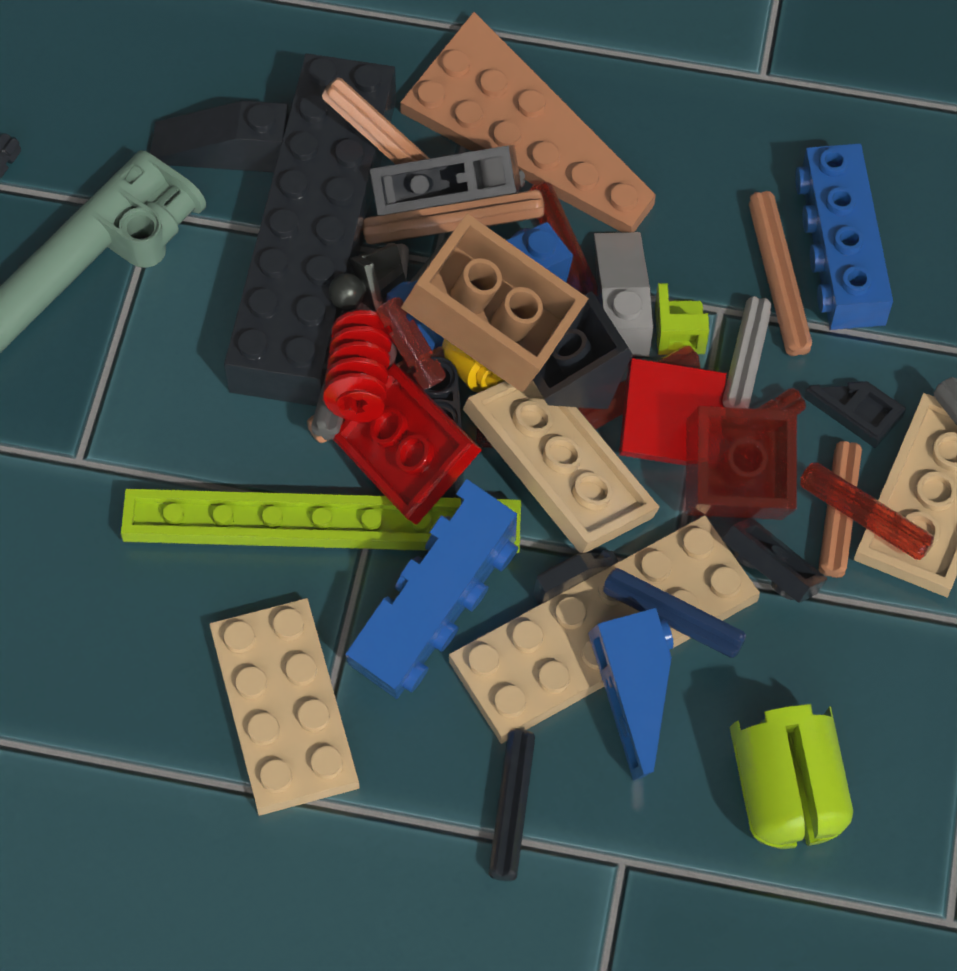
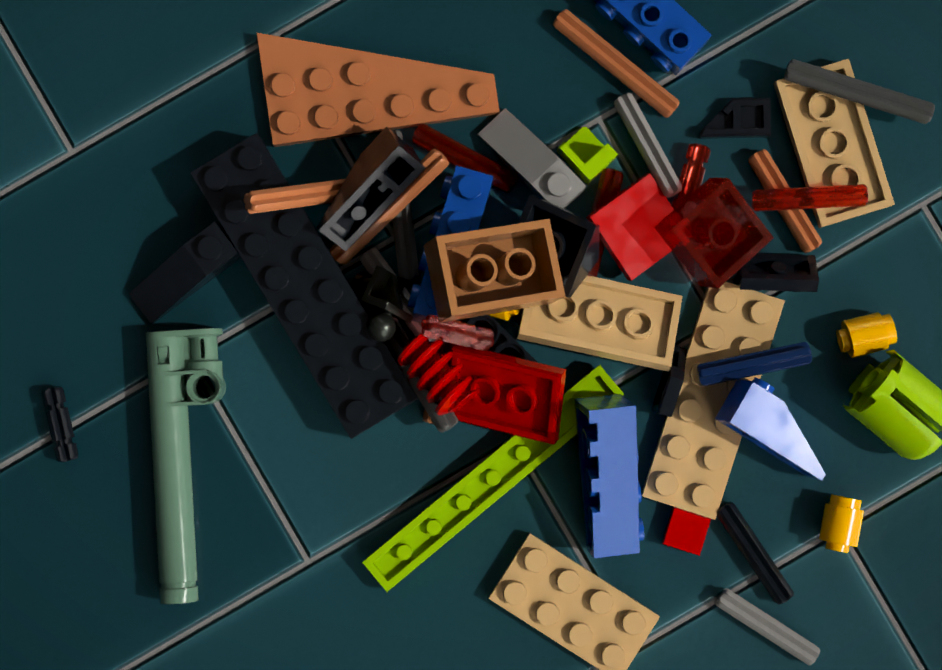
camera: 40 degrees left, 25 degrees up
(459, 889) = (768, 626): none -> light grey axle
(462, 727) = (686, 531): none -> red tile
(628, 845) = (841, 523): none -> yellow brick
(816, 684) = (866, 334): none -> yellow brick

